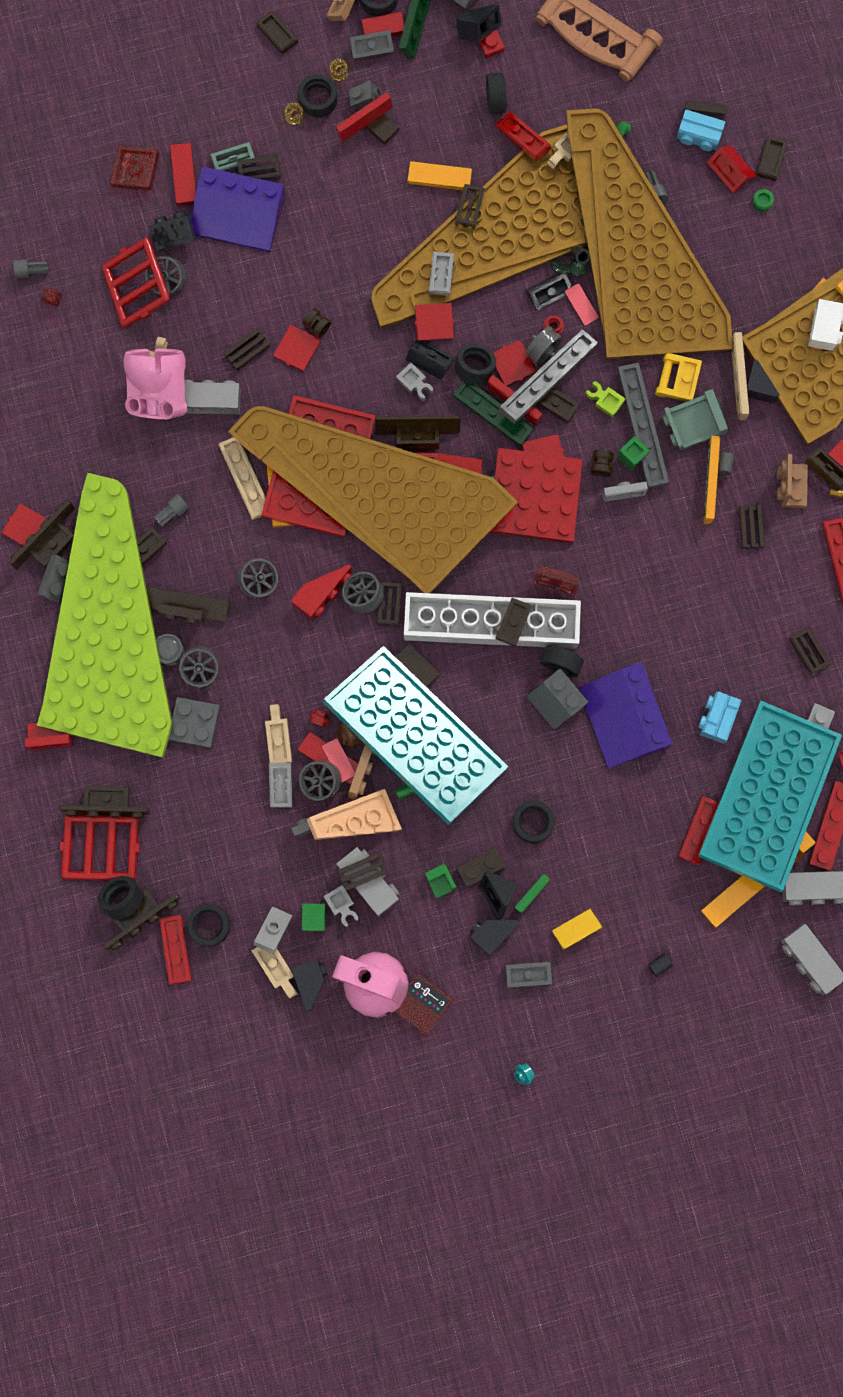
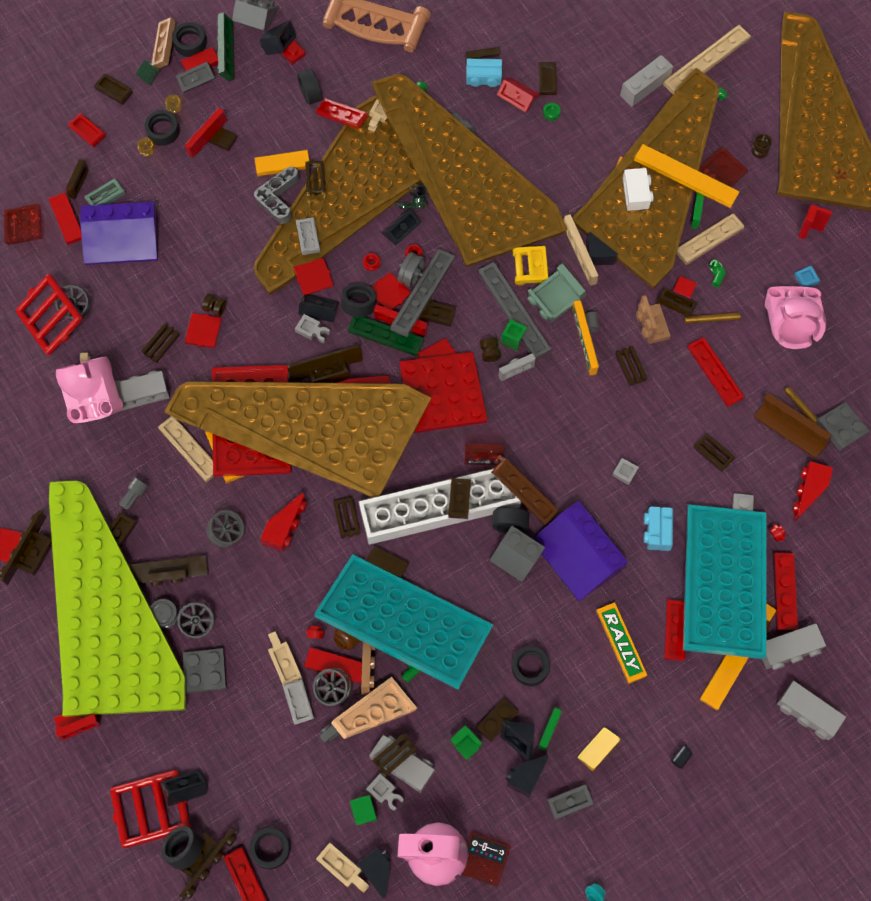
camera: 20 degrees left, 10 degrees down
(54, 579) = (44, 582): dark grey plate -> none
(105, 801) = (143, 764): dark brown bracket -> none
(139, 837) = (184, 787): none -> black slope
(172, 231) = (69, 265): black bracket -> none
(207, 131) = (77, 179): none -> dark brown tile
(234, 74) = (87, 130): none -> red tile
(272, 930) = (329, 834): light grey plate -> none
(276, 165) = (143, 190): dark brown tile -> none
(320, 23) = (147, 72): none -> clear green tile
(338, 757) = (341, 661): coral sticker -> none
(363, 95) = (199, 116): dark grey bracket -> none
(363, 593) = (321, 514): dark grey wheel -> none
(417, 210) = (291, 177): none -> dark grey beam
(503, 317) = (374, 258): none -> red plate
(581, 304) = (431, 230): coral sticker -> none
(585, 634) = (524, 490): none -> reddish brown panel
(608, 400) = (478, 299): lime plate -> none
(638, 826) = (621, 643): none -> tile
(704, 643) = (625, 471): none -> light grey plate

